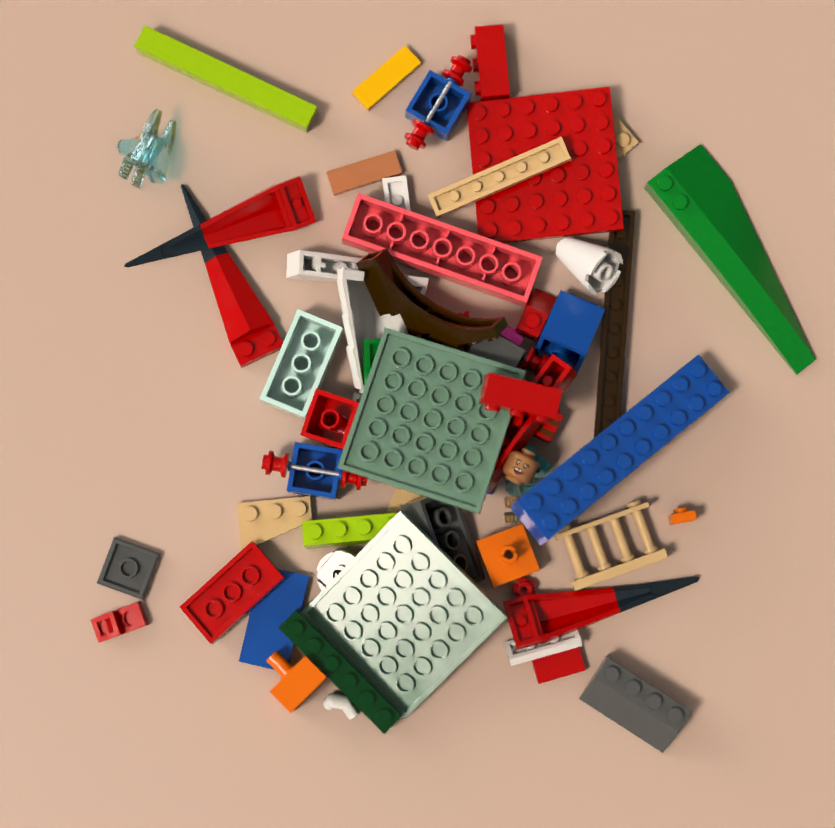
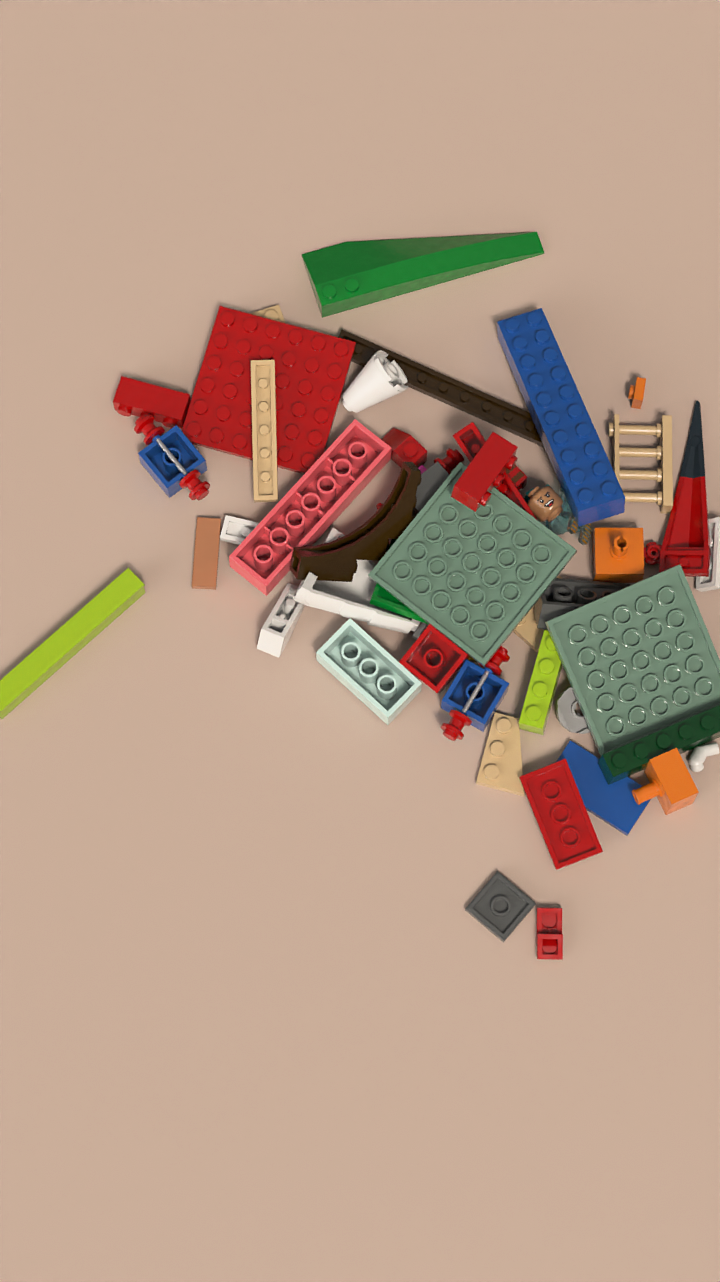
camera: 70 degrees left, 10 degrees down
(148, 152) = (105, 740): clear light blue piece -> none
(244, 317) = (301, 710): red plate -> none
(267, 213) = (210, 650): red plate -> none
(386, 78) = (124, 501): yellow tile -> none
(569, 329) = (430, 422): blue slope -> none

